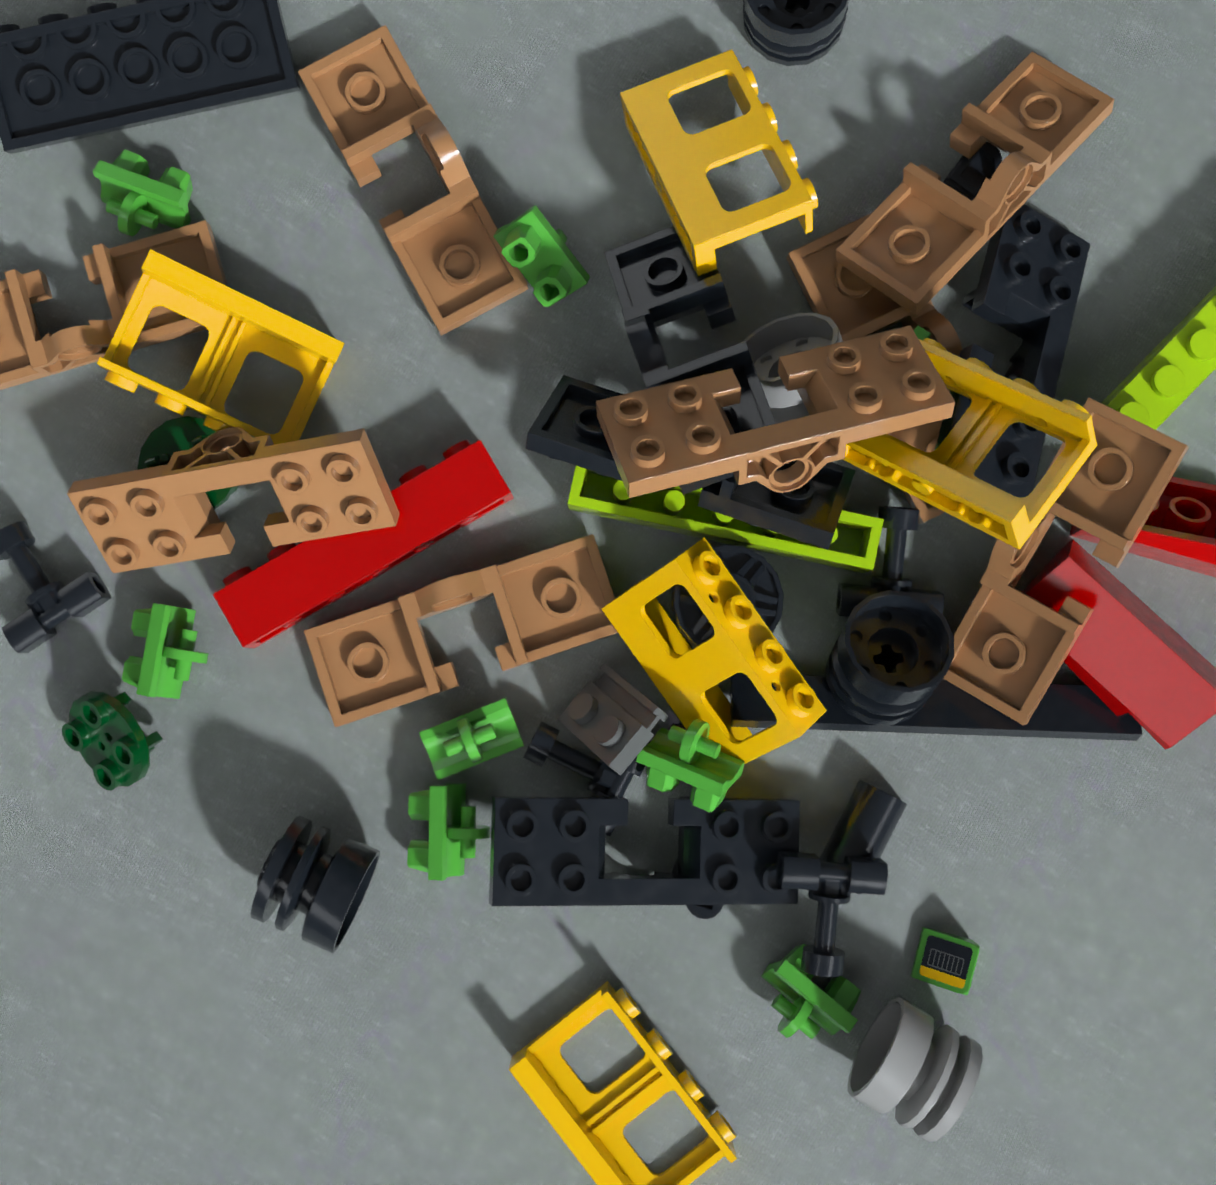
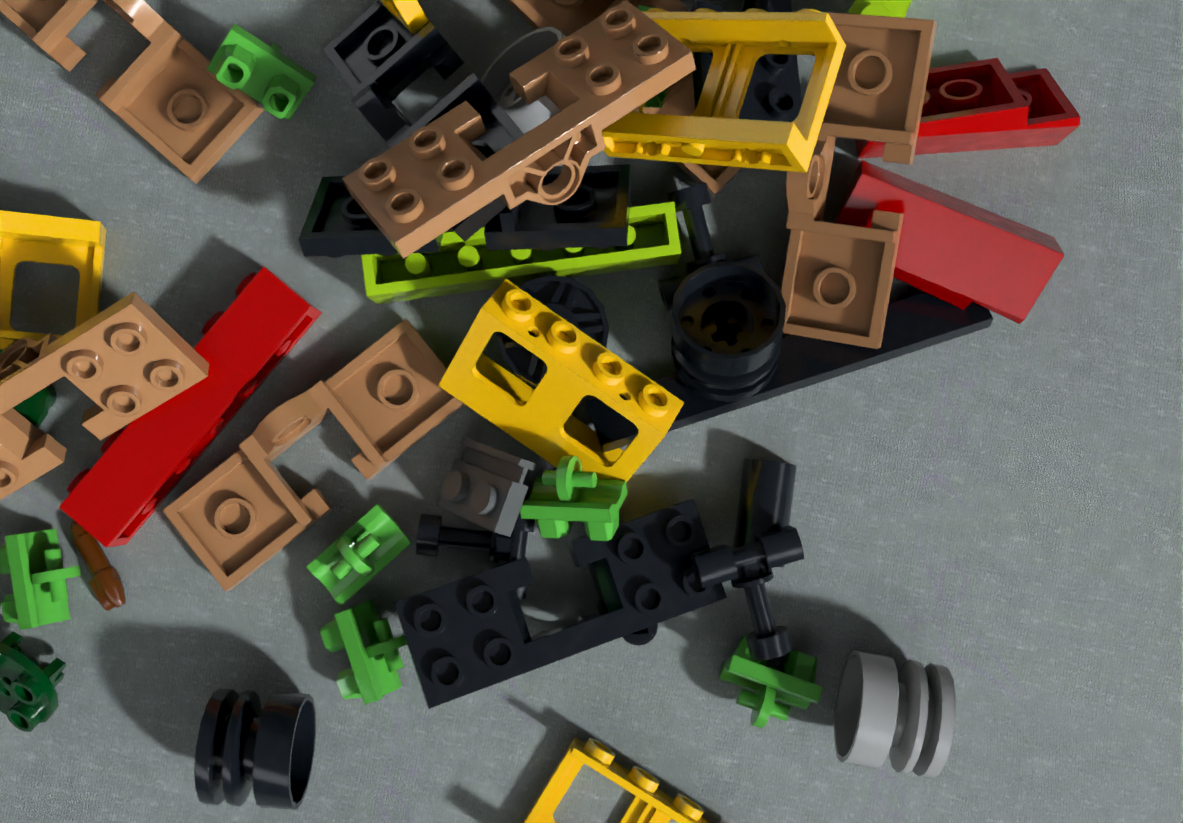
camera: 20 degrees left, 0 degrees up
(225, 674) = (105, 578): none -> reddish brown piece
(945, 960) = (886, 599): slope -> none

